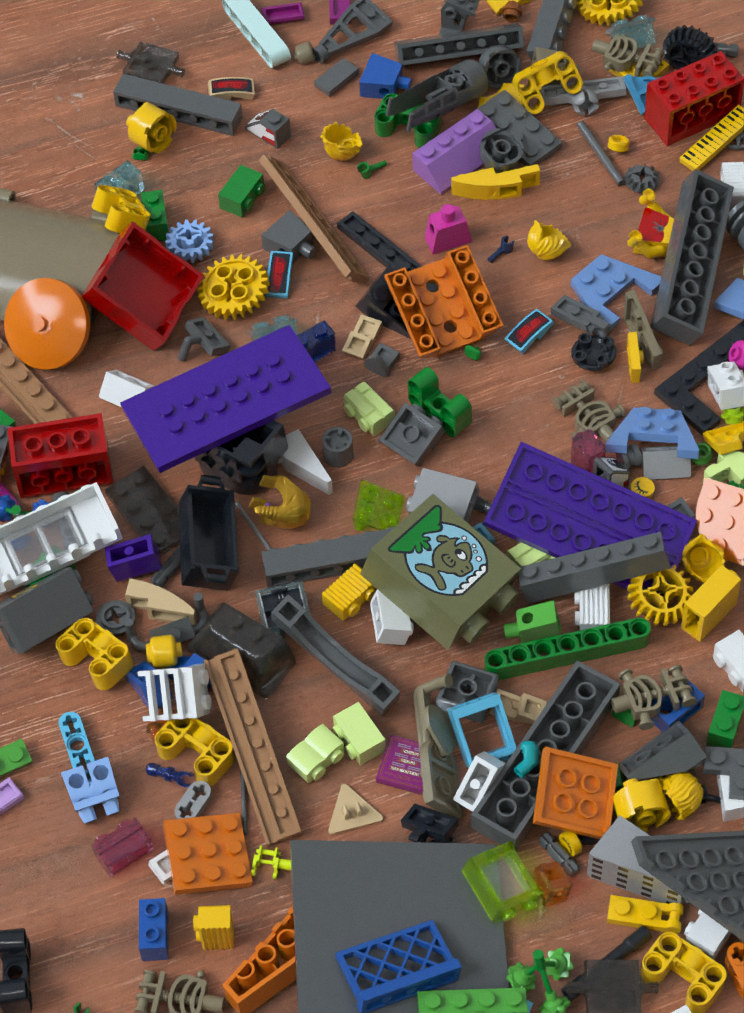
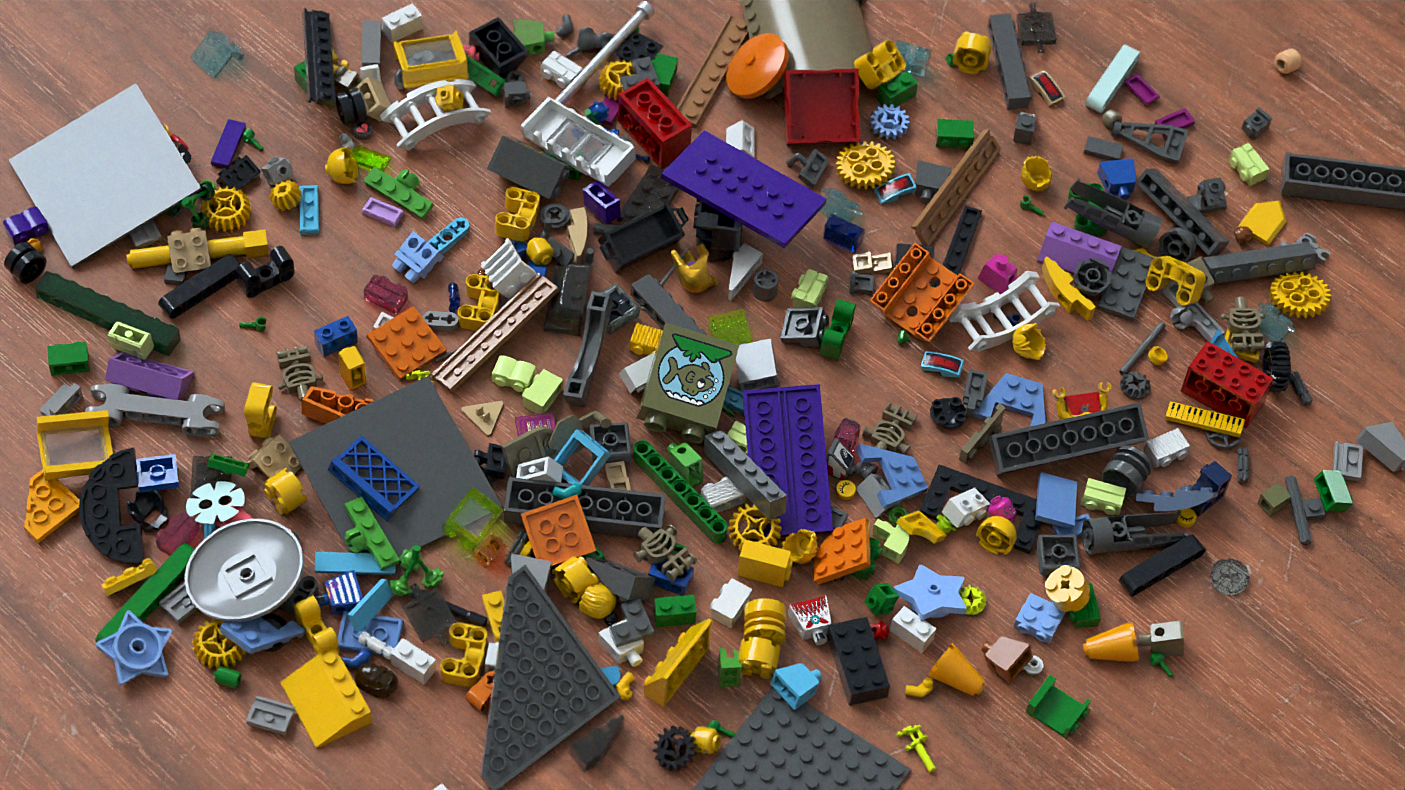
camera: 55 degrees right, 0 degrees up
(481, 252) = (993, 303): none -> white fence
(635, 357) = (957, 440): yellow plate -> none

